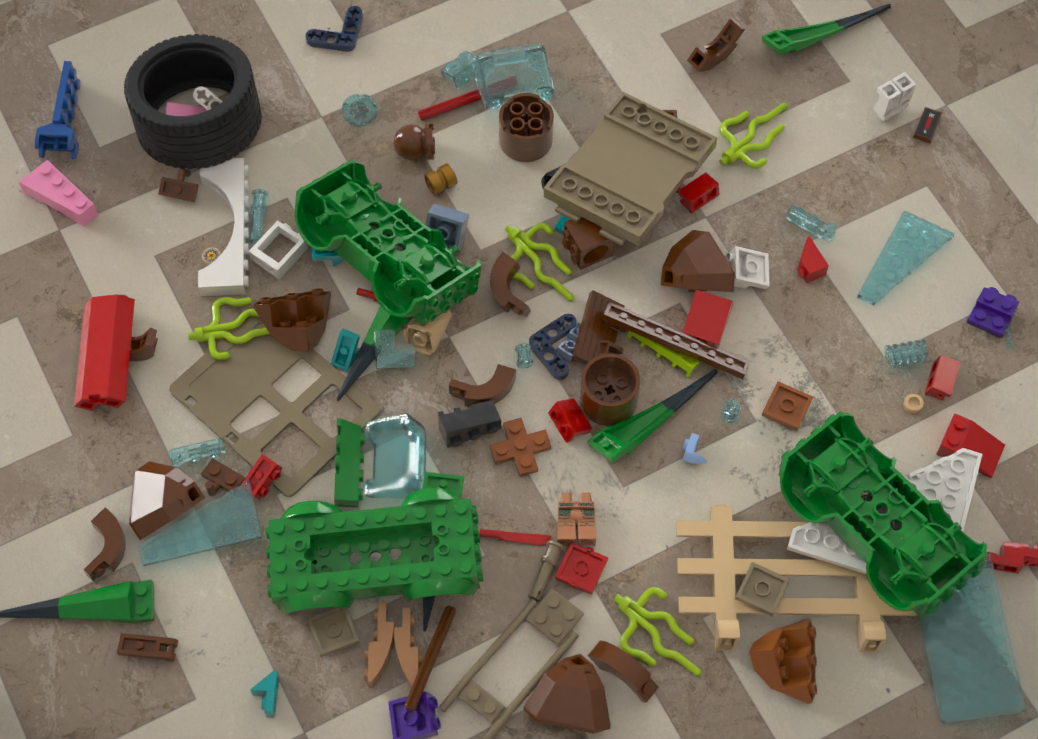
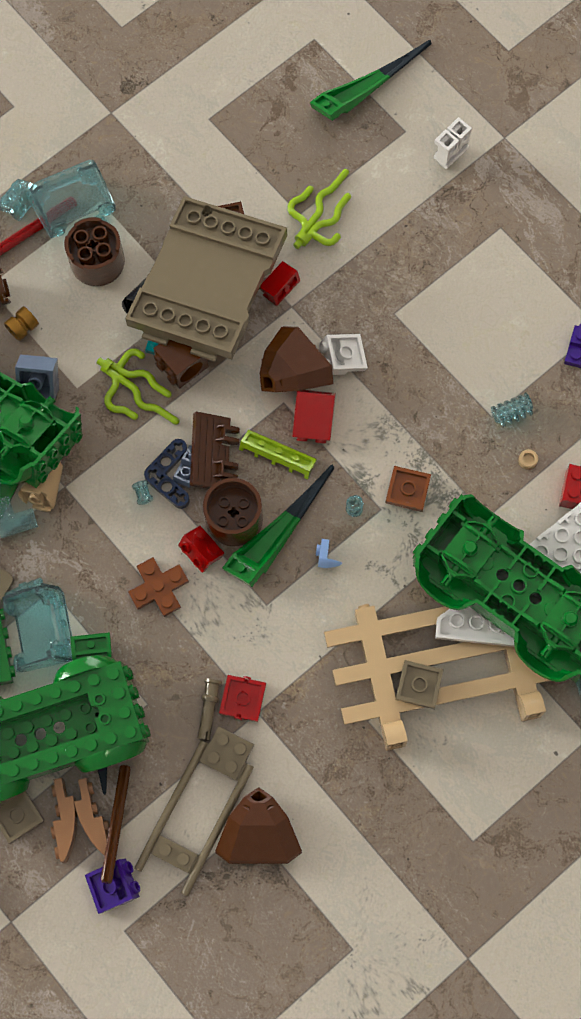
camera: 10 degrees left, 10 degrees up
(469, 423) = (103, 575): black wedge -> none
(494, 389) = (114, 540): reddish brown arch -> none
(500, 279) = (102, 417): reddish brown arch -> none
(534, 539) = (187, 678): red piece -> none
(576, 513) = (227, 644): nougat hips -> none
(624, 666) = (303, 792): reddish brown arch -> none
(636, 615) = (302, 731): lime plant -> none
(676, 340) = (287, 445): reddish brown plate -> none
(710, 55) = (267, 128): reddish brown arch -> none
(788, 660) = (456, 747): dark orange brick -> none
(811, 223) = (396, 292): clear light blue plate -> none
(812, 263) = (403, 334): red slope -> none
(903, 253) = (492, 301): clear light blue wing -> none
(927, 125) = (490, 163): tile -> none
(942, 377) = (551, 427): hinge -> none

